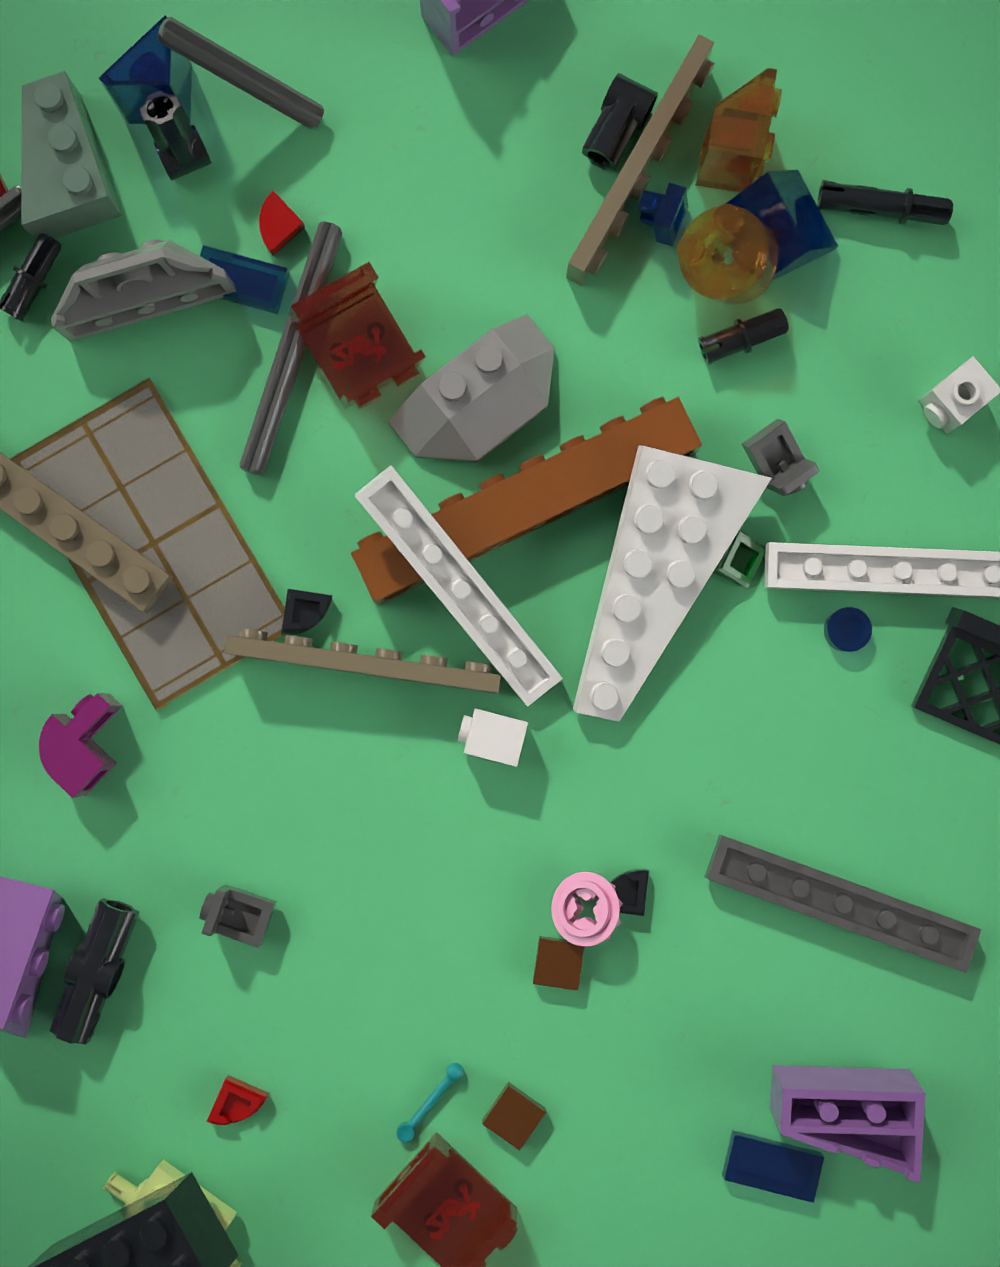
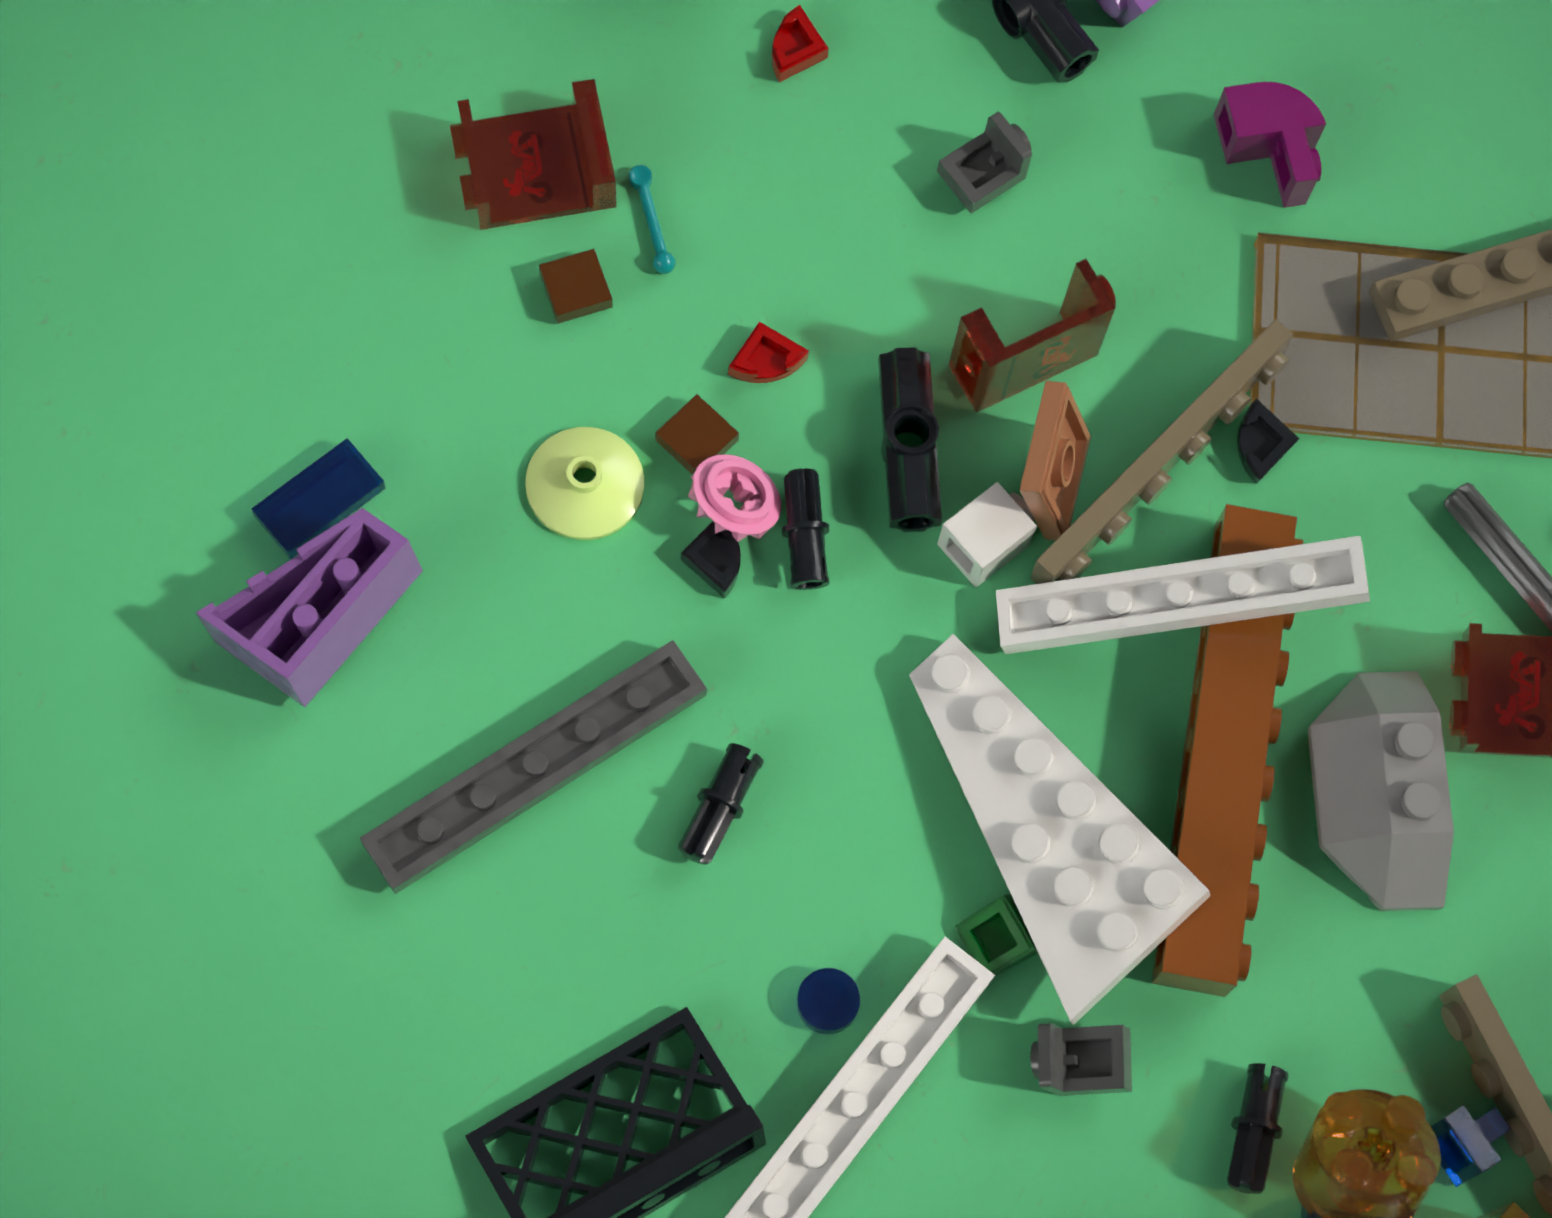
camera: 120 degrees right, 15 degrees down
(300, 774) = (996, 372): none -> clear red panel
(422, 726) = (1055, 460): none -> nougat plate
(444, 848) = (910, 471): none -> black piece
(472, 959) = (767, 357): none -> red tile
(573, 850) = (805, 530): none -> black axle
(632, 987) = (588, 508): none -> yellowish green dish
(783, 776) = (719, 804): none -> black axle

